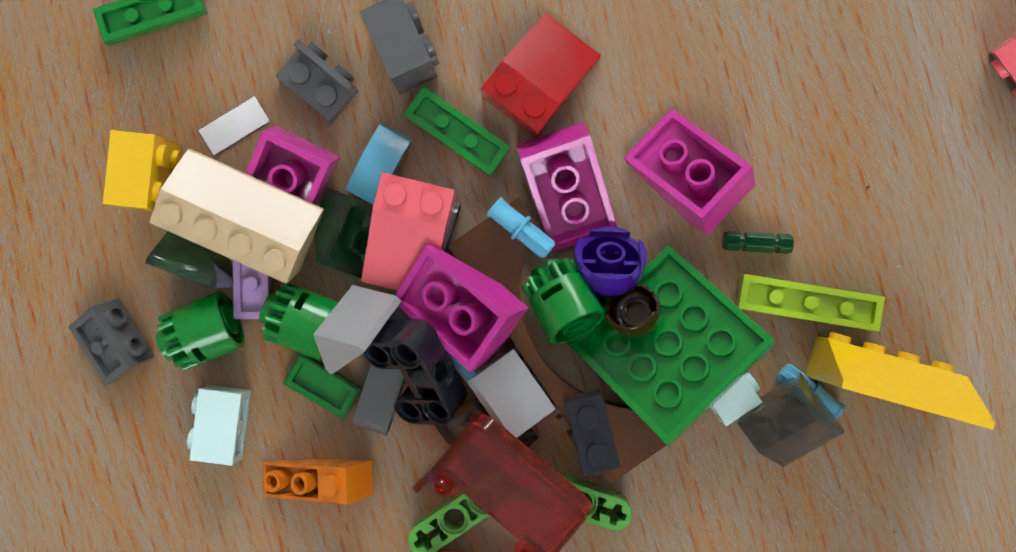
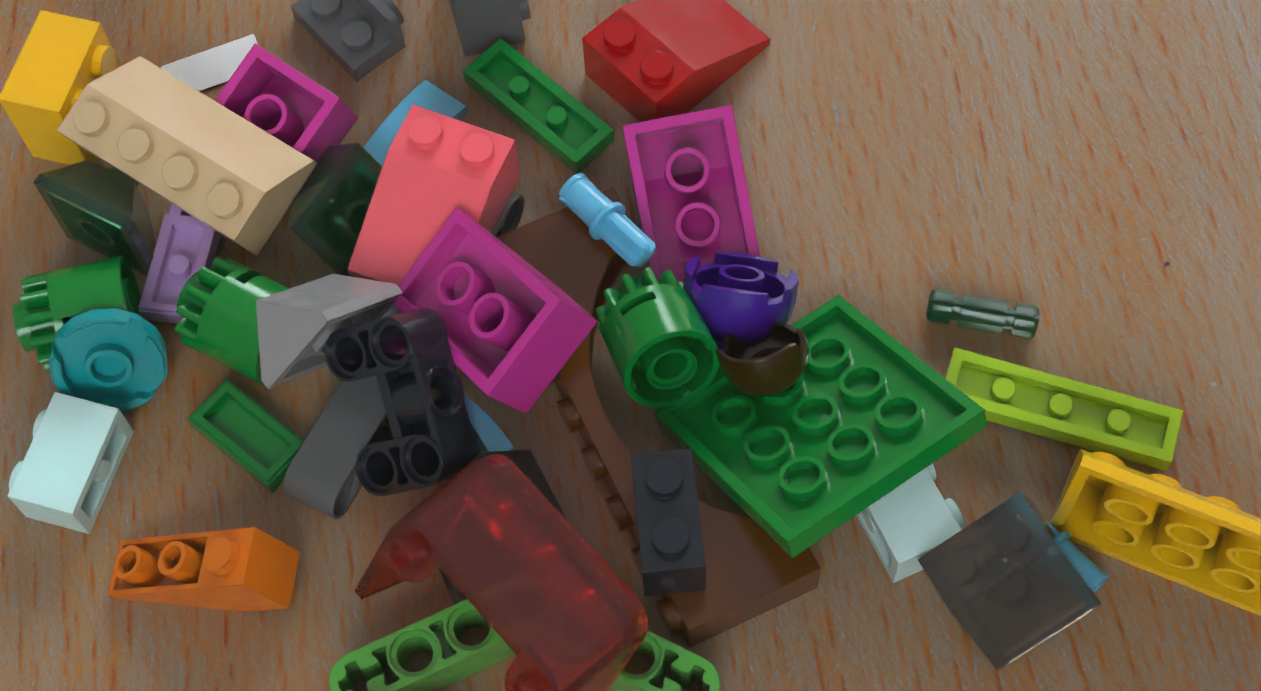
camera: 10 degrees right, 25 degrees down
(225, 362) = (109, 358): none -> teal tile
(511, 393) = (555, 453): light grey slope -> none
(691, 171) = (889, 199): dark pink slope -> none

